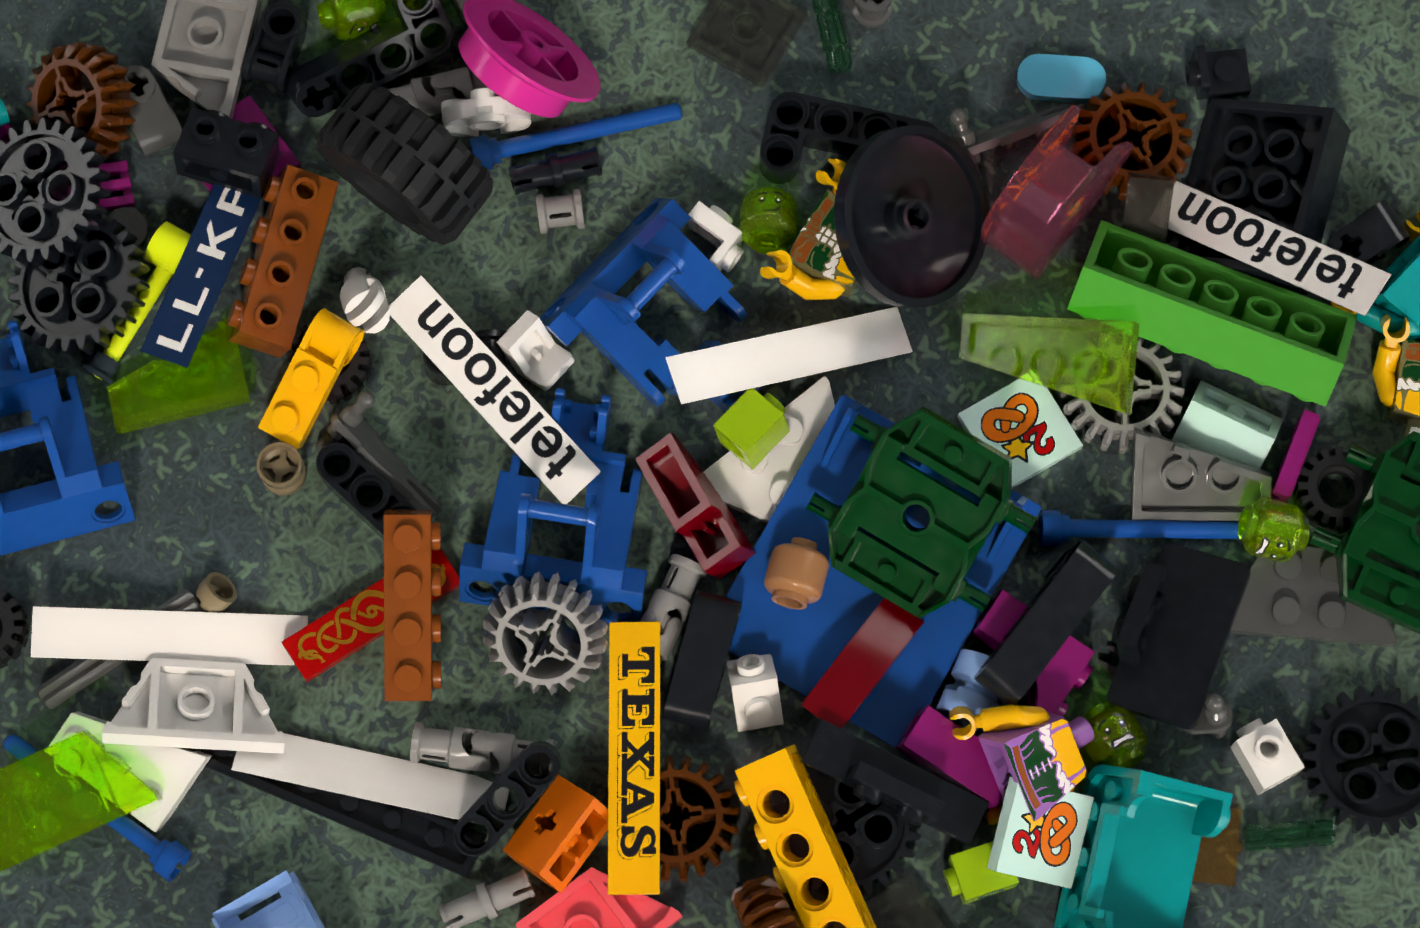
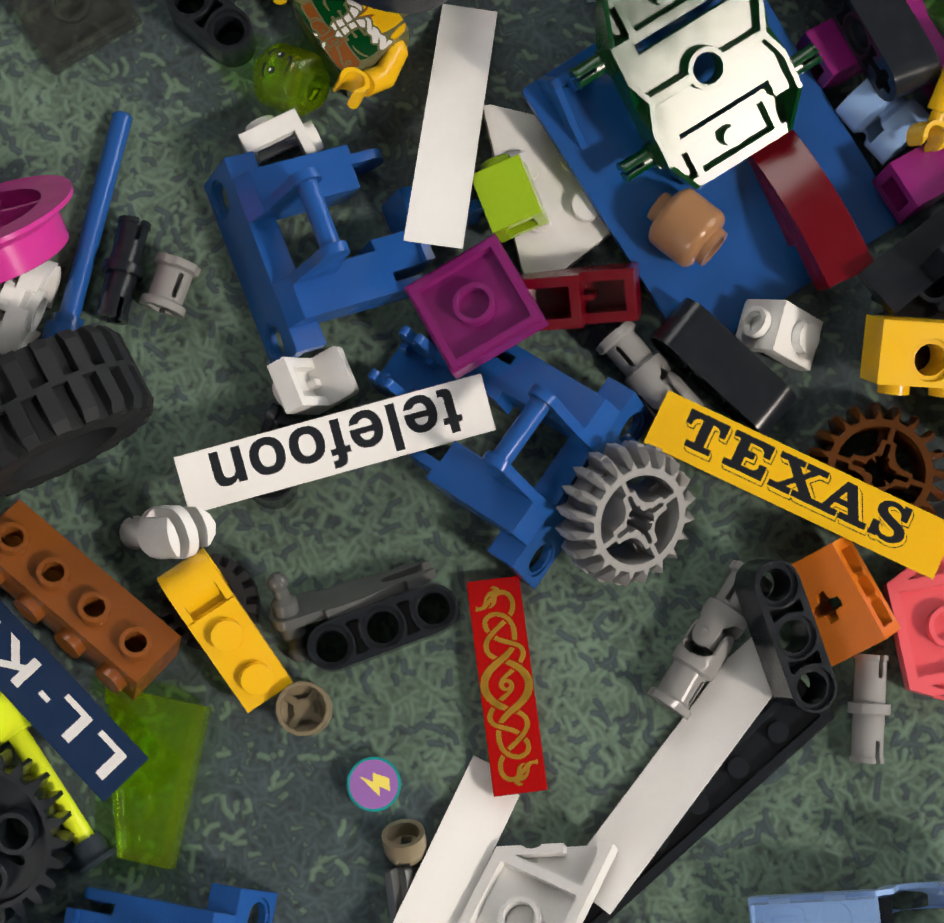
camera: 70 degrees left, 5 degrees up
(250, 550) = (373, 784): none -> medium lavender tile
(408, 605) = (527, 640): dark orange brick -> none
(650, 441) = (475, 306): none -> magenta tile

